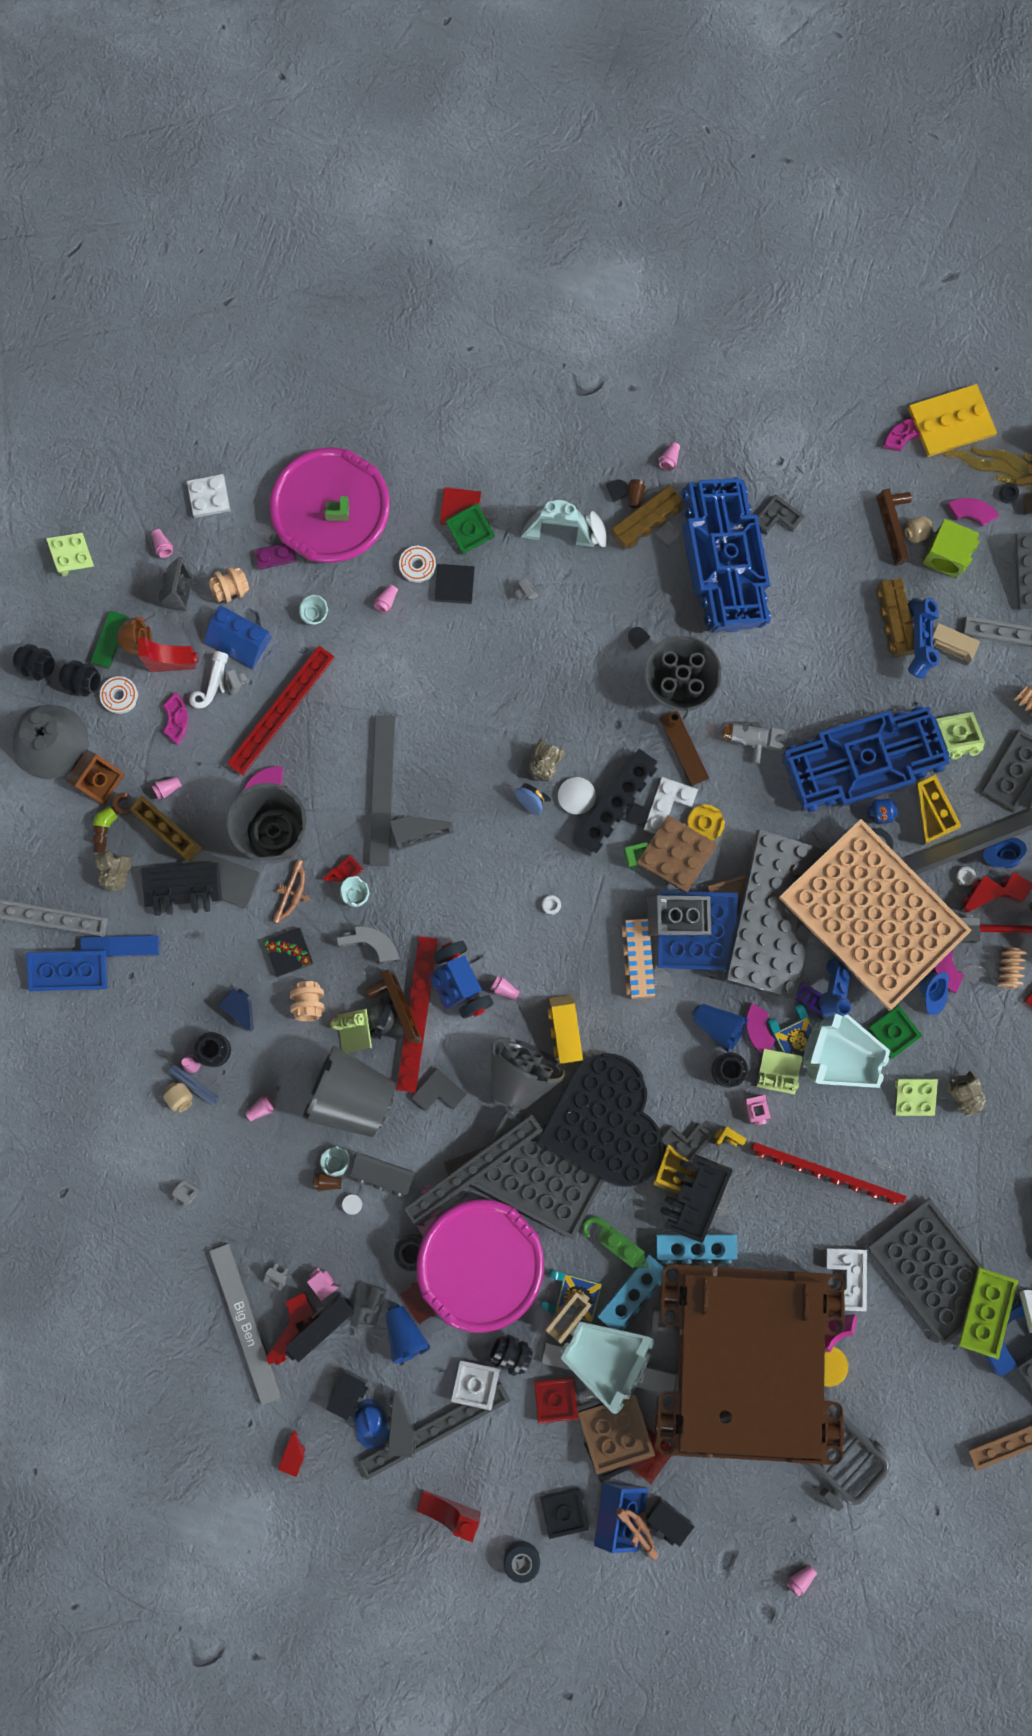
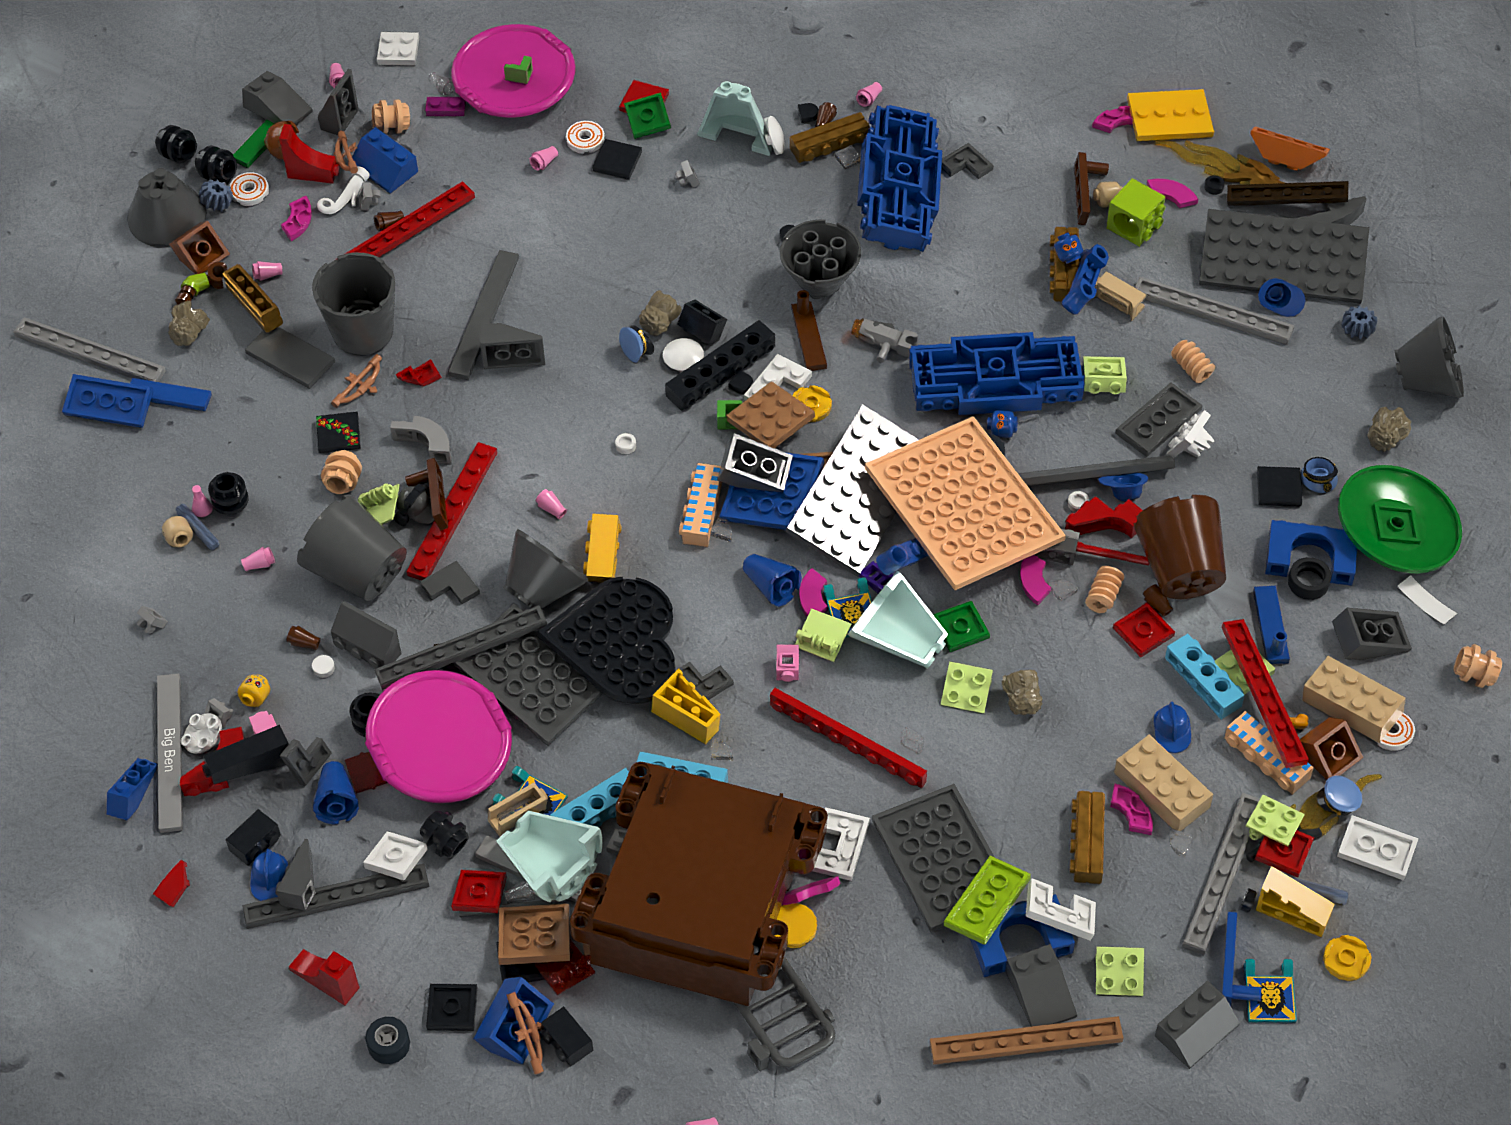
camera: 15 degrees right, 25 degrees down
(69, 553) = (243, 67): yellowish green hinge -> none
(91, 714) = (215, 195): none -> sand blue gear
(113, 589) = (274, 99): none -> dark grey slope
(182, 883) = (251, 351): black hinge -> none
(200, 634) = (352, 167): none -> nougat piece
(224, 1370) = (130, 789): none -> blue slope
(239, 1008) = (268, 466): dark blue slope -> none
(262, 704) = (386, 219): none -> reddish brown cone
(268, 1301) = (201, 733): none -> white dish
(300, 1247) = (253, 690): none -> yellow head
(313, 609) = (467, 151): light aqua hair -> none
(335, 1161) = (318, 620): light aqua hair -> none
(354, 891) = (424, 389): light aqua hair -> none
(457, 982) = (502, 482): blue brick -> none
(586, 760) = (701, 322): none -> black brick
(617, 1243) = (595, 754): bright green plate -> none
(698, 1200) = (694, 716): black hinge -> none
(733, 1137) = (751, 681): yellow bracket -> none
(741, 1069) = (767, 617): black piece -> none
(903, 610) = (1068, 248): none -> blue head
(935, 810) = (1058, 433): yellow wedge -> none
(935, 990) = (1014, 592): blue piece -> none

